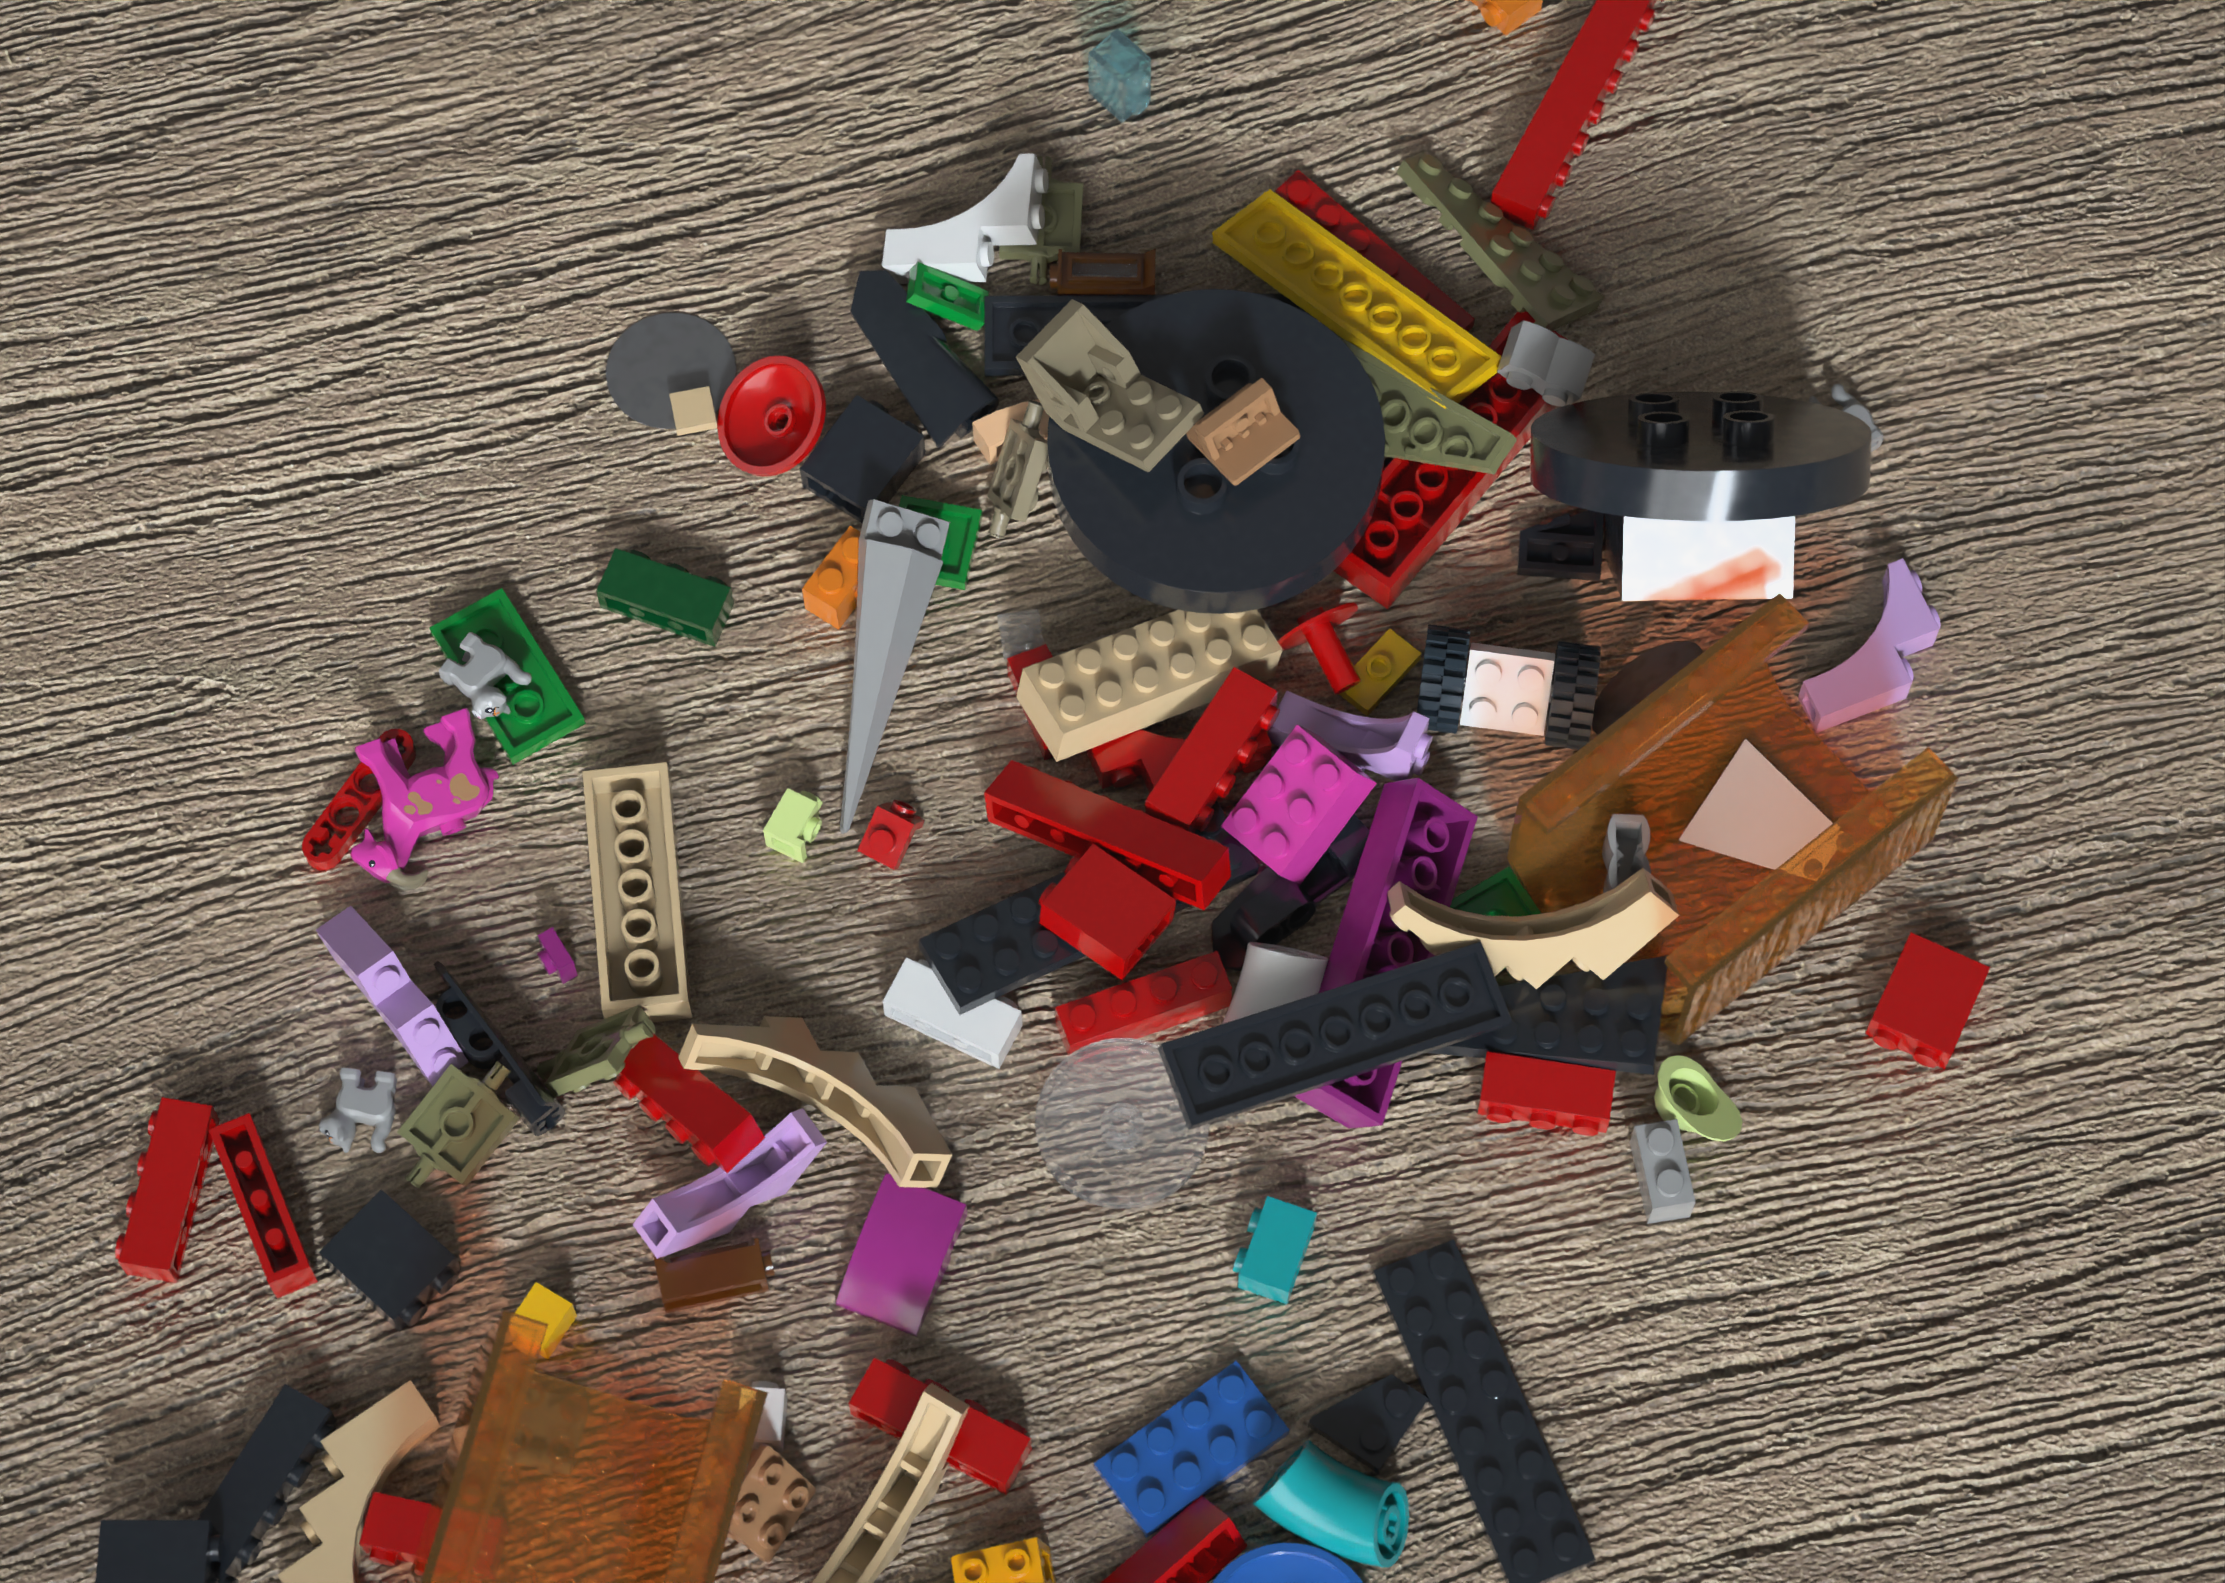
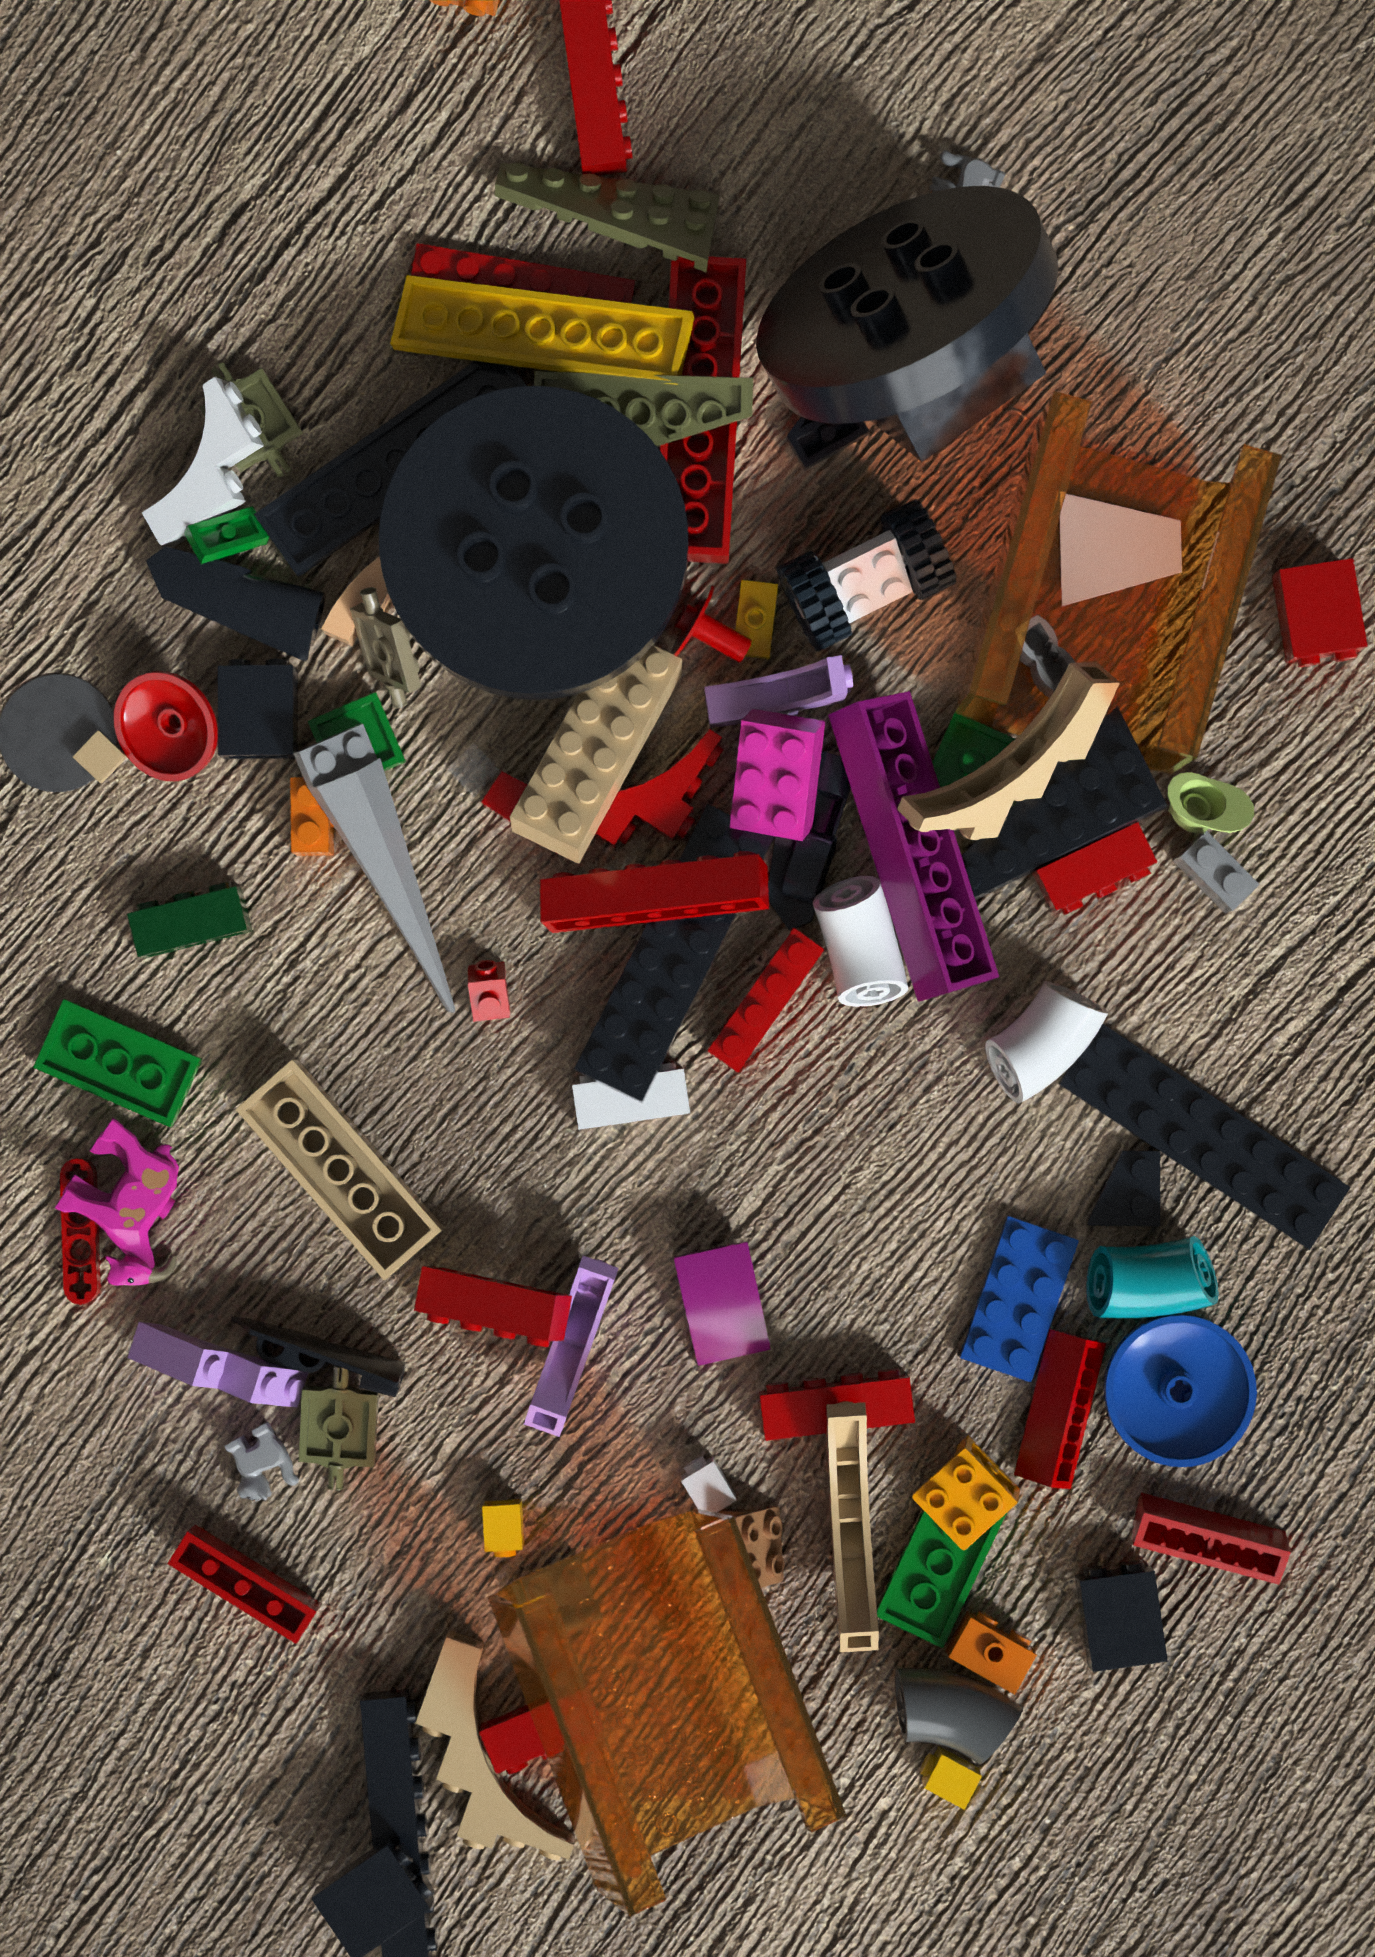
camera: 35 degrees left, 20 degrees up
(167, 1190) = (166, 1615): red brick -> none
(391, 1261) = (365, 1557): black brick -> none
(483, 669) = (100, 1084): light grey animal -> none
(555, 956) = (314, 1254): magenta plate -> none
(596, 1052) = (401, 1311): olive plate -> none
(713, 1276) = (601, 1408): reddish brown window -> none
(794, 823) = (414, 1032): yellowish green brick -> none
(837, 1083) = (590, 1213): tan arch -> none
(1098, 392) = (433, 569): dark tan bracket -> none
(1104, 273) = (332, 434): reddish brown window -> none
(1106, 910) = (696, 956): red brick -> none
(1116, 1126) = (812, 1101): clear dish -> none
(1120, 76) = (229, 259): clear light blue brick -> none
(1213, 752) = (689, 779): red brick -> none
(1244, 432) = (558, 528): medium nougat bracket -> none
(1276, 1249) = (982, 1117): teal brick -> none
(1334, 1035) = (935, 949): black plate -> none
(1384, 1212) = (1043, 1040): none -> white brick
(1545, 363) = (727, 295): light grey brick -> none
(1641, 679) = (972, 504): flat silver sticker -> none
(1876, 671) = (1119, 370): lavender arch -> none

